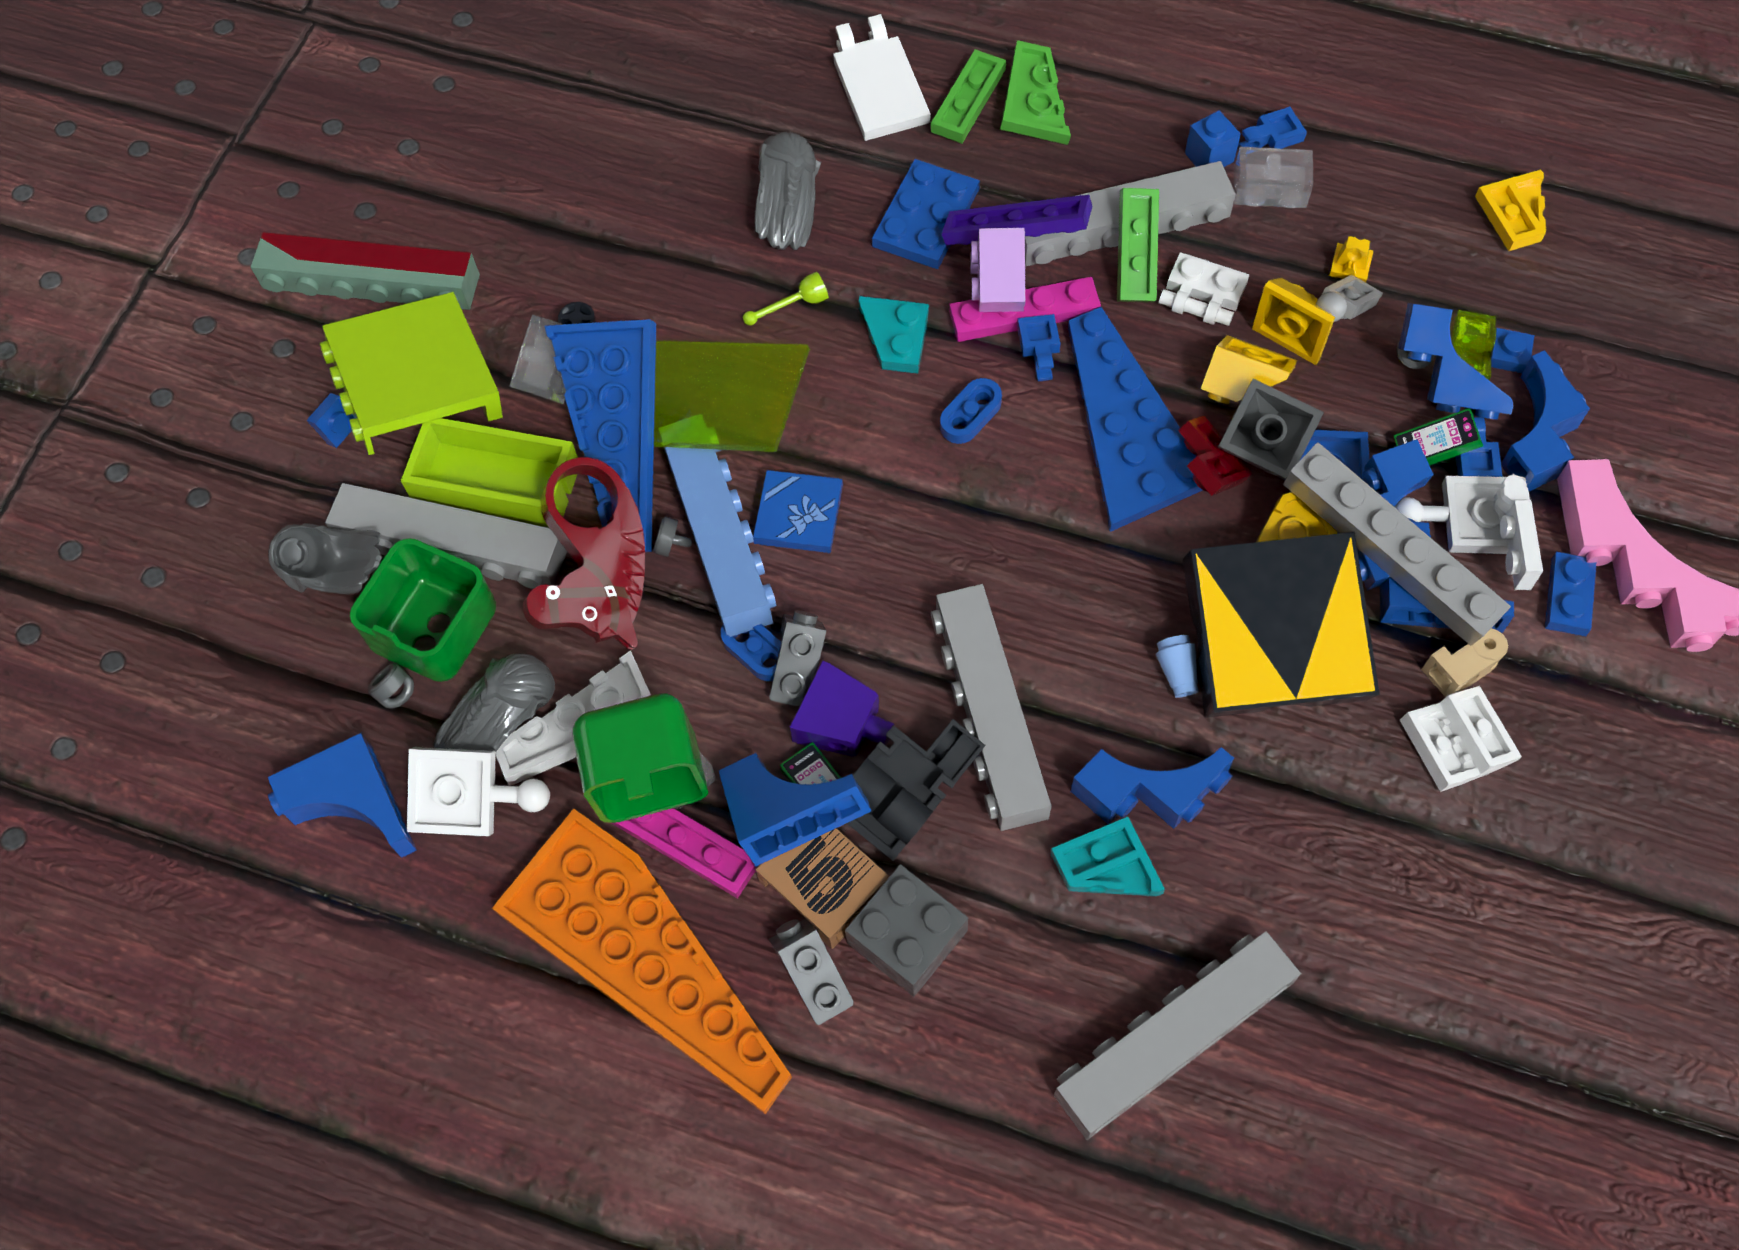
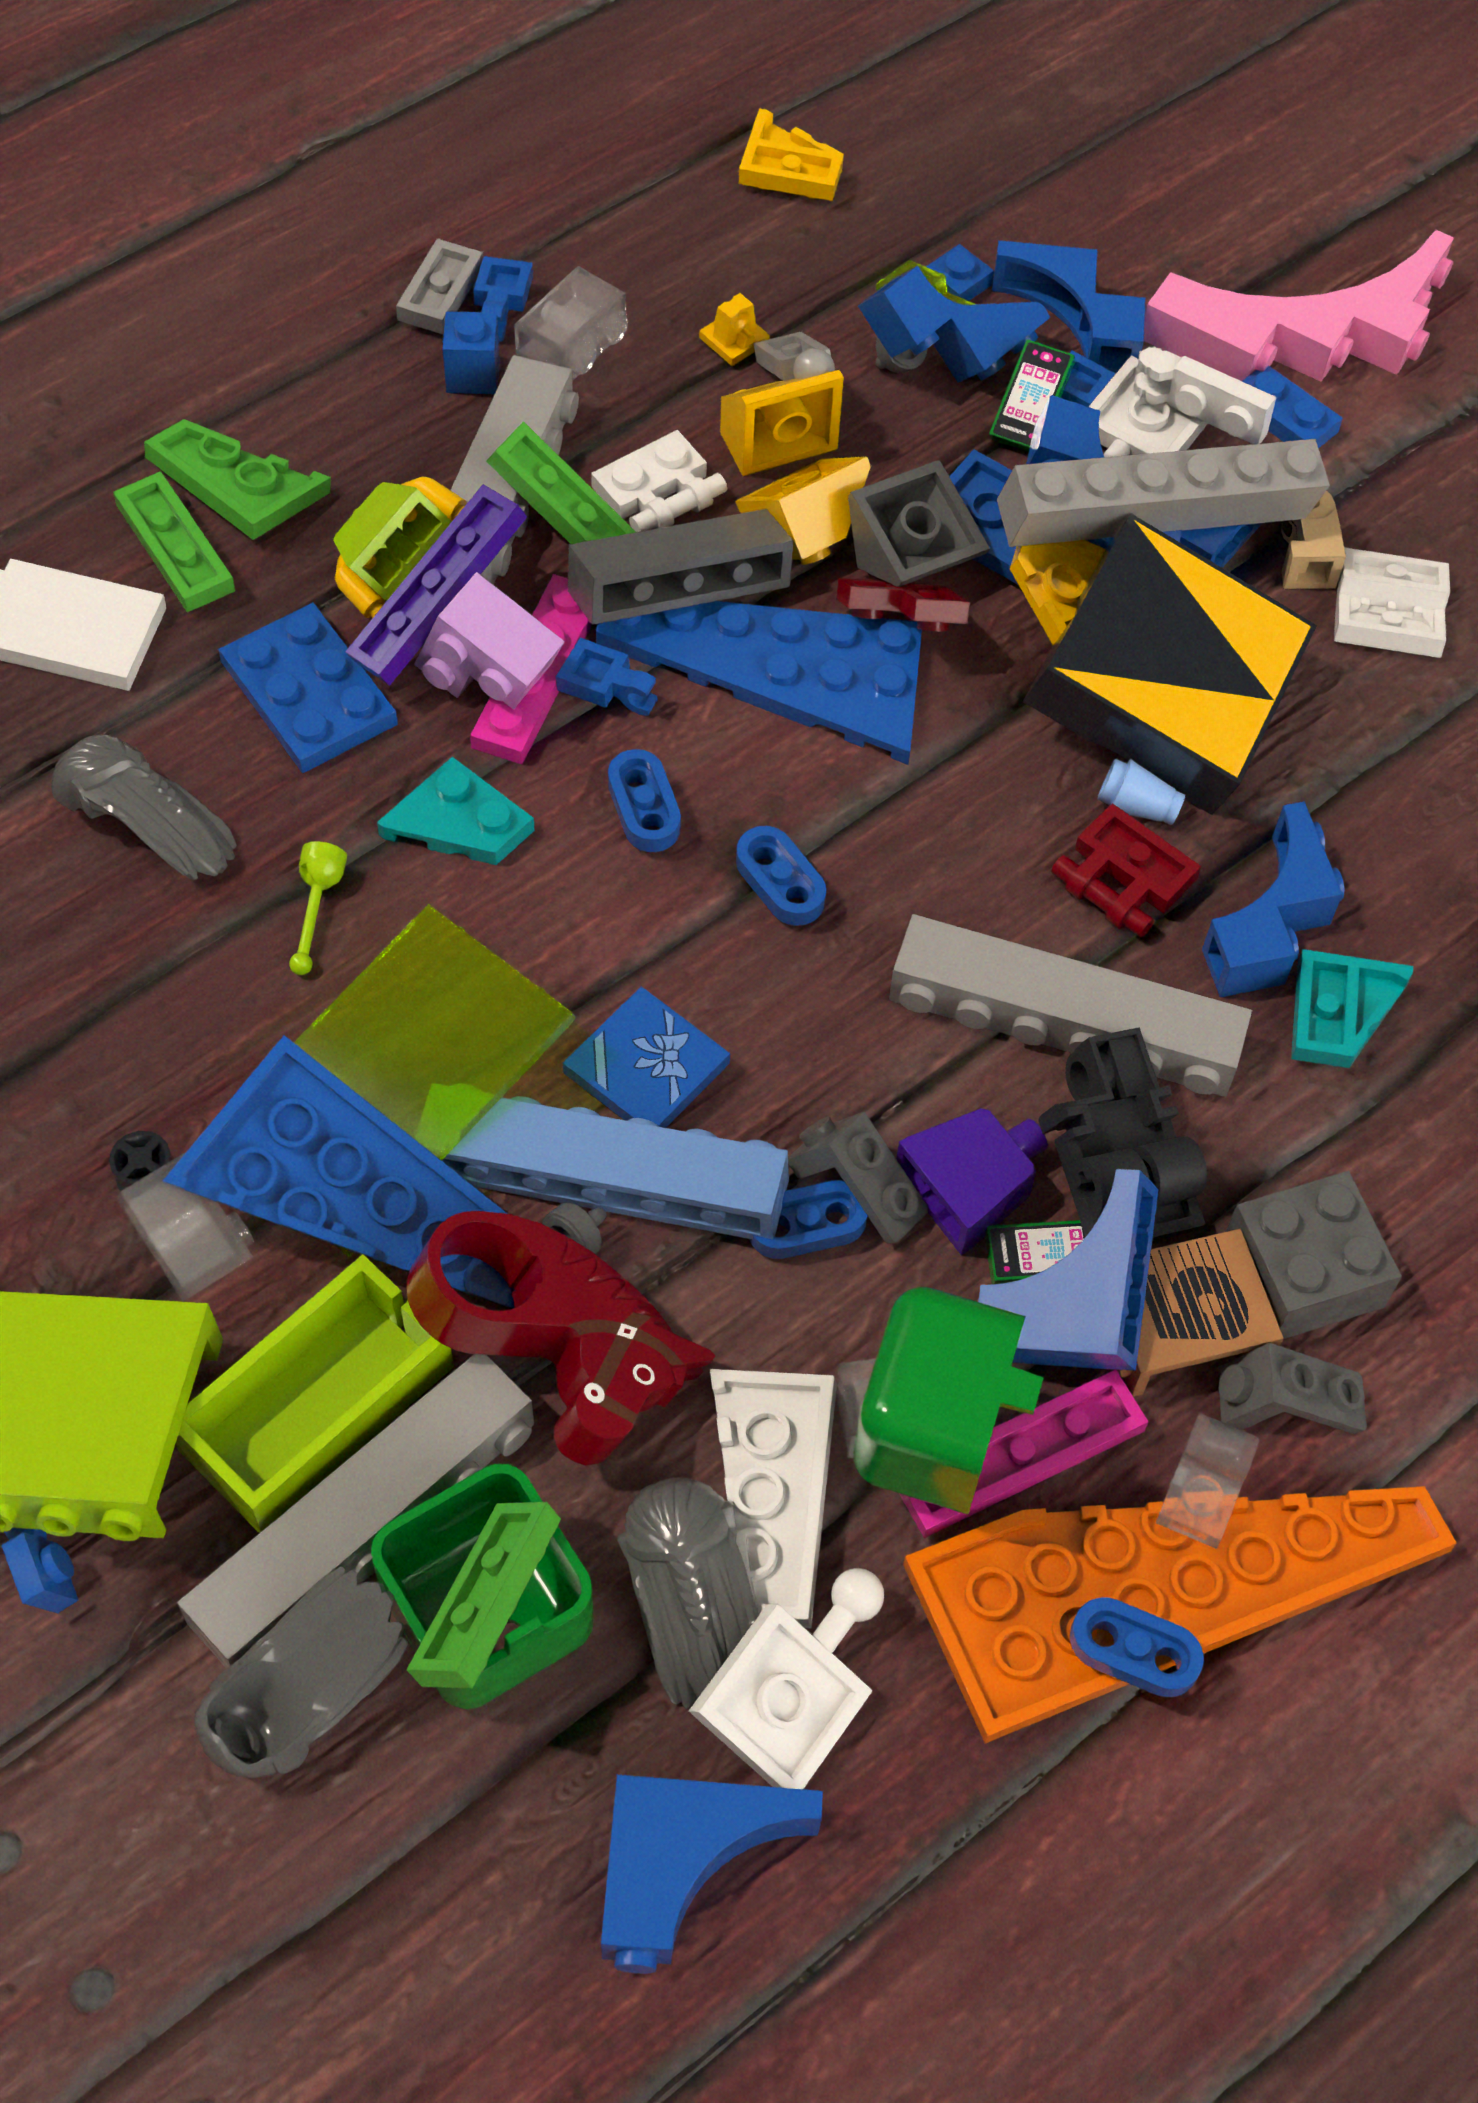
camera: 65 degrees left, 5 degrees down
(387, 683) = (545, 1711): dark grey tile -> none
(395, 604) = (484, 1595): none -> bright green plate
(579, 957) = (1137, 1642): none -> blue plate
(721, 940) = (1207, 1480): none -> clear brick
(970, 509) = (782, 880): none -> blue plate
(1038, 181) = (390, 538): none -> lime torso
(1128, 688) = (1135, 858): none -> dark red plate
(1138, 329) = (679, 566): none -> dark grey brick
(1251, 100) = (439, 285): none -> light grey plate

